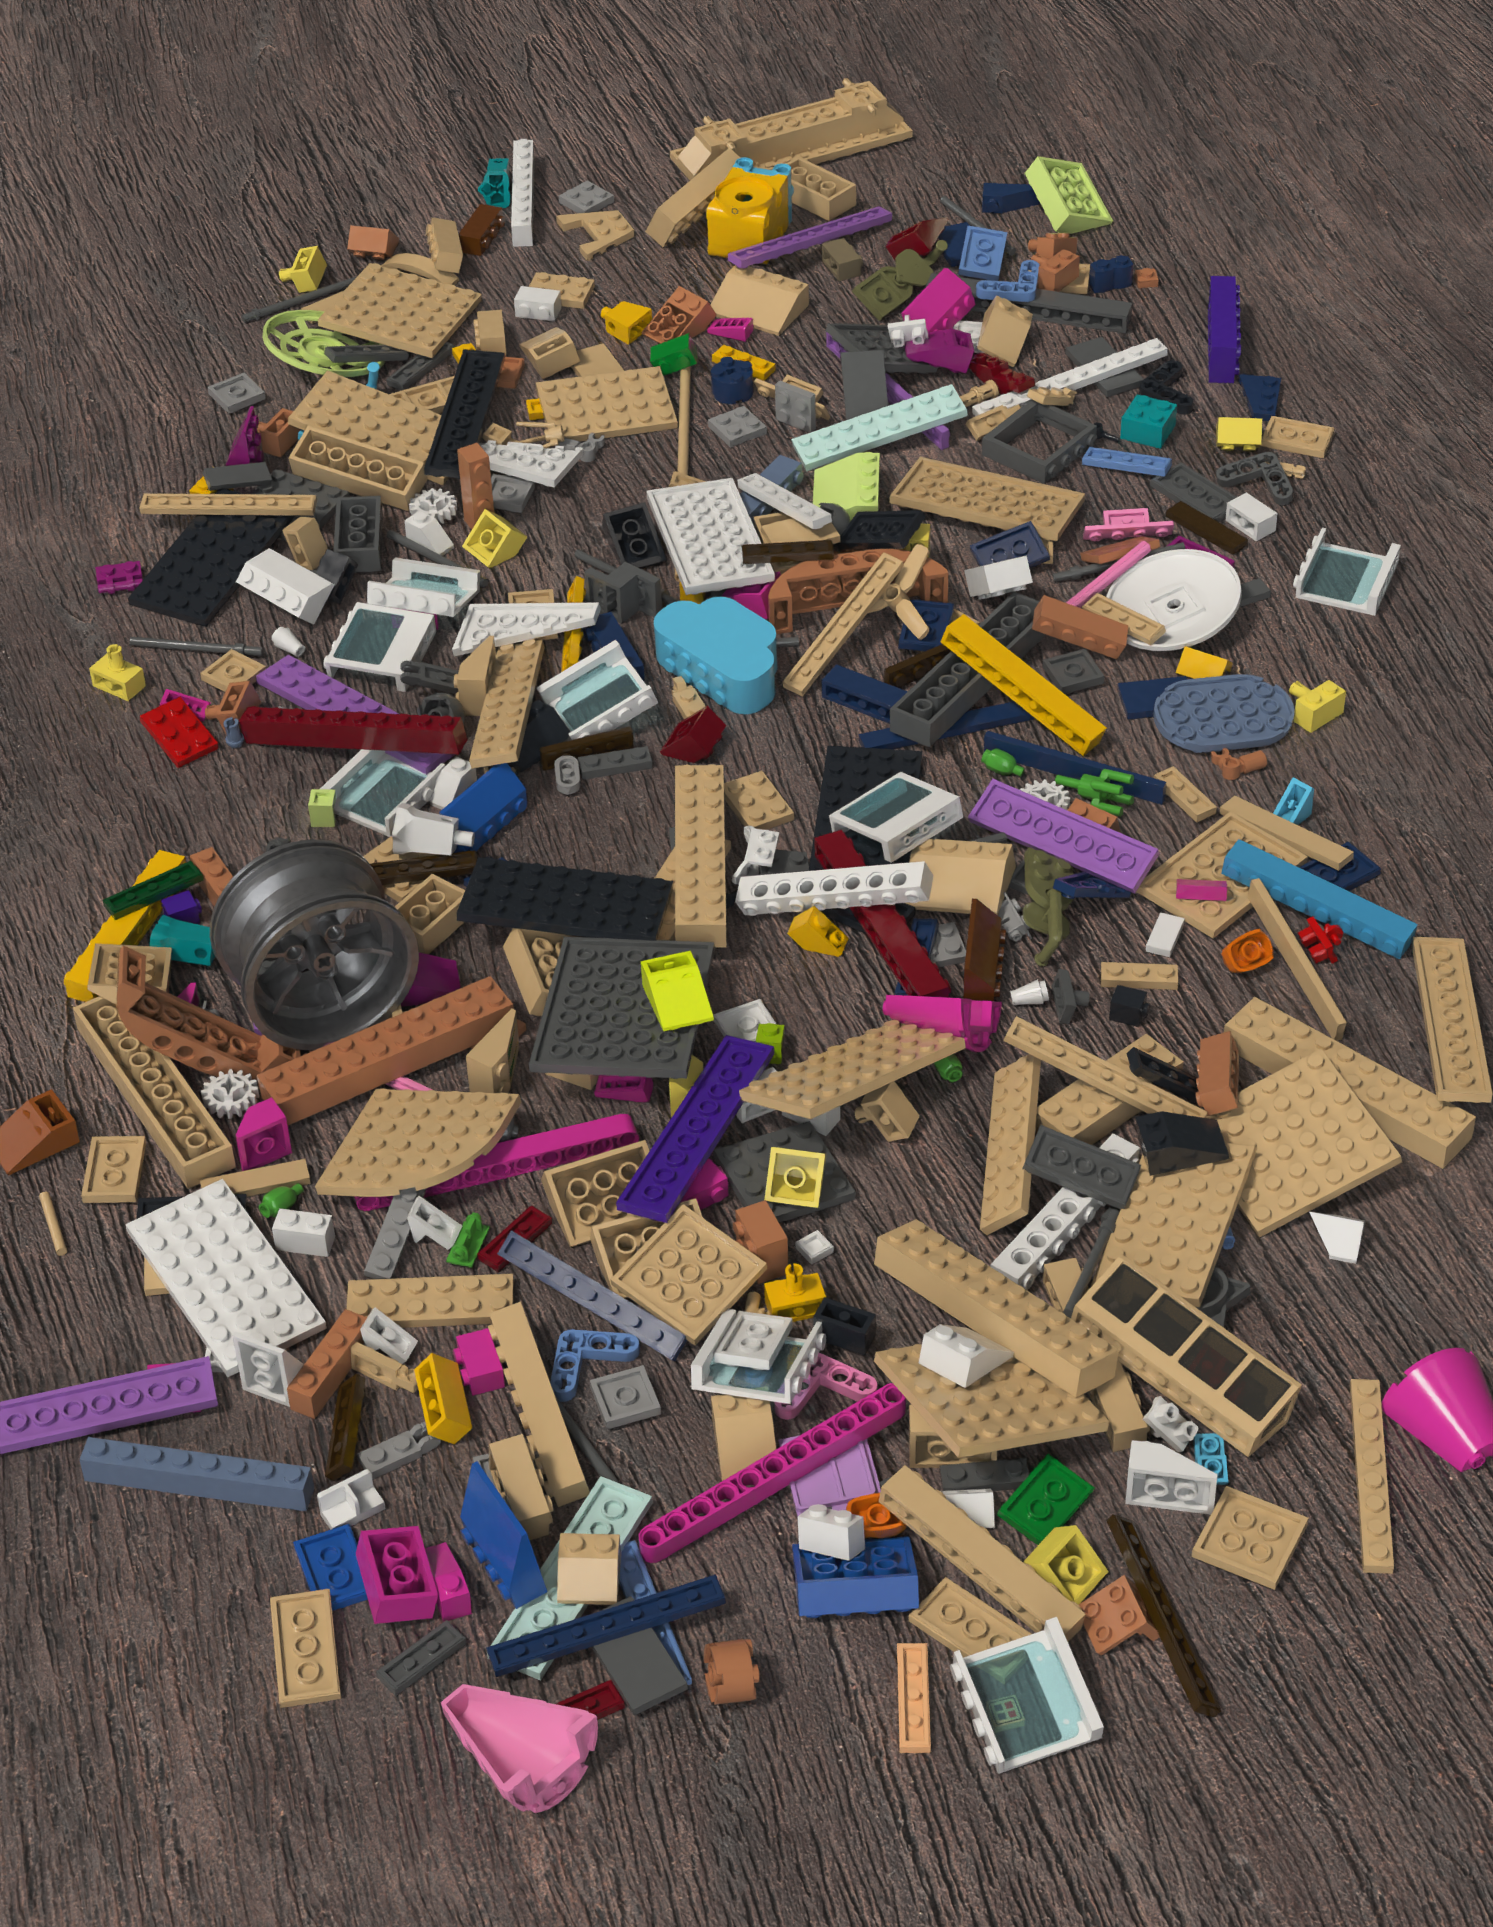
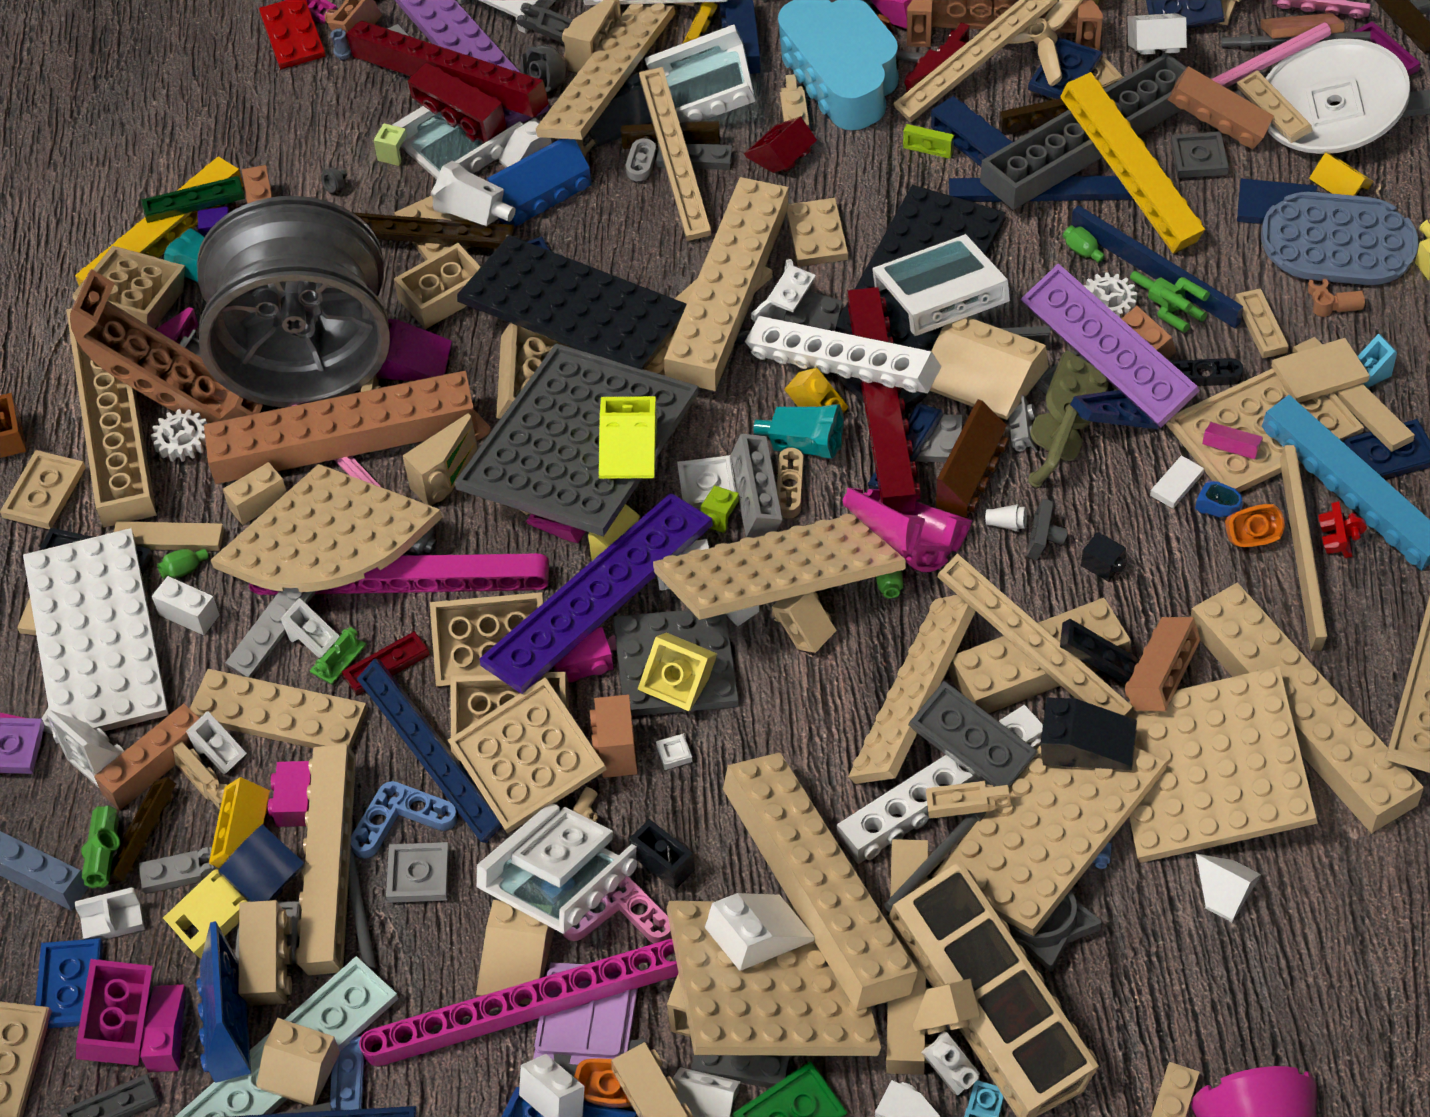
camera: 20 degrees right, 10 degrees up
(262, 1135) = (184, 491): dark pink slope -> none
(316, 1447) = (100, 847): none -> bright green piece
(327, 1125) = (254, 493): none -> tan brick
(379, 757) = (458, 103): none -> dark red wedge
(447, 1469) = (208, 902): none -> light yellow container
(484, 1419) = (261, 866): none -> dark blue slope
(602, 761) = (675, 154): none -> tan plate
(795, 1296) = (627, 805): yellow brick -> none
(798, 1014) = (756, 485): none -> light grey brick
(805, 638) = (933, 59): none -> dark red slope
(819, 962) = (808, 429): none -> teal piece
(821, 1018) = (784, 473): none -> tan beam
(827, 707) = (928, 141): none -> lime plate
(1096, 1215) = (966, 799): none -> tan hinge
(1139, 975) = (1131, 523): tan plate -> none
(1153, 1371) = (947, 1005): none -> tan slope
(1168, 839) = (1223, 377): none -> black beam
(1209, 939) = (1218, 499): none -> blue rock
(1253, 818) = (1320, 370): none -> tan tile

